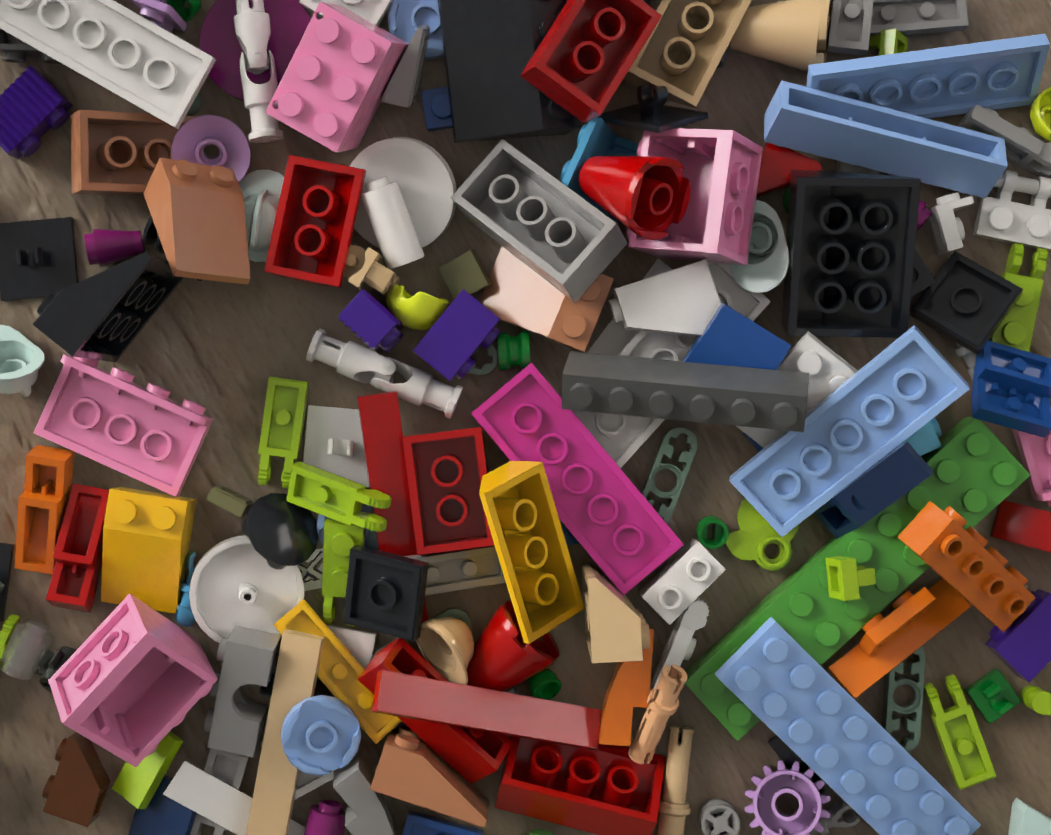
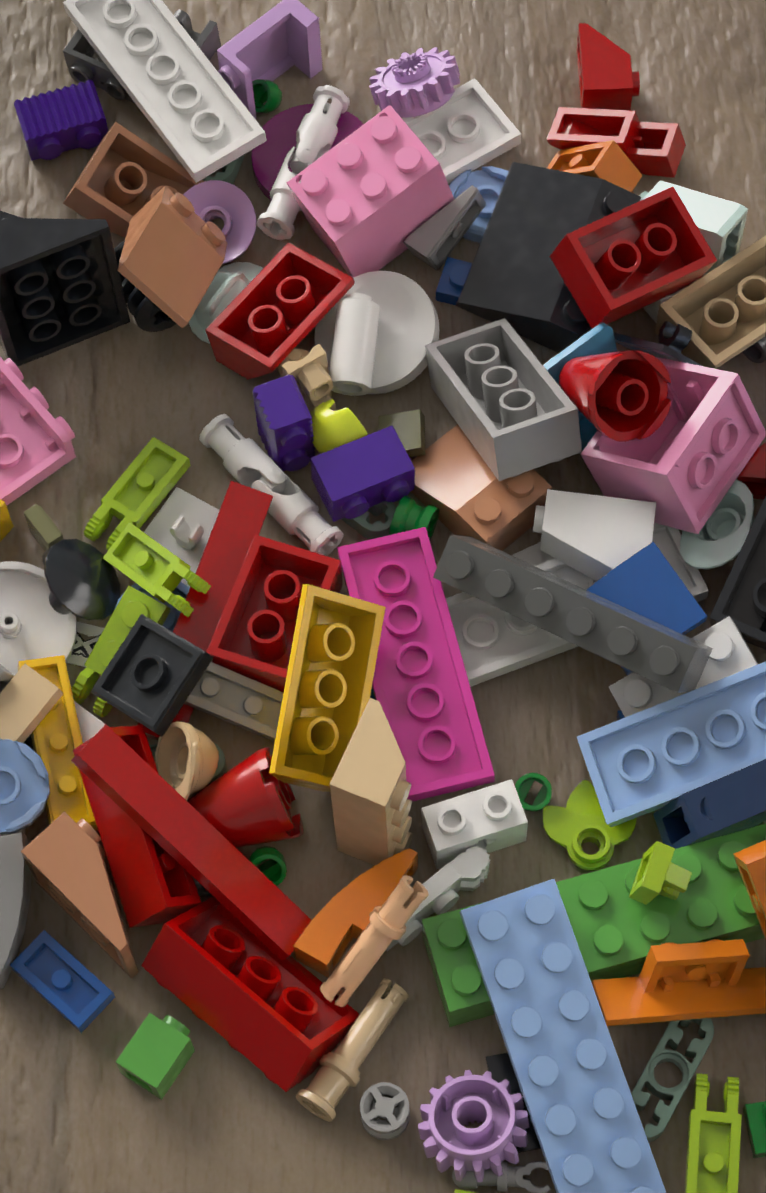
camera: 30 degrees right, 25 degrees down
(684, 456) = (541, 711): sand green beam -> none

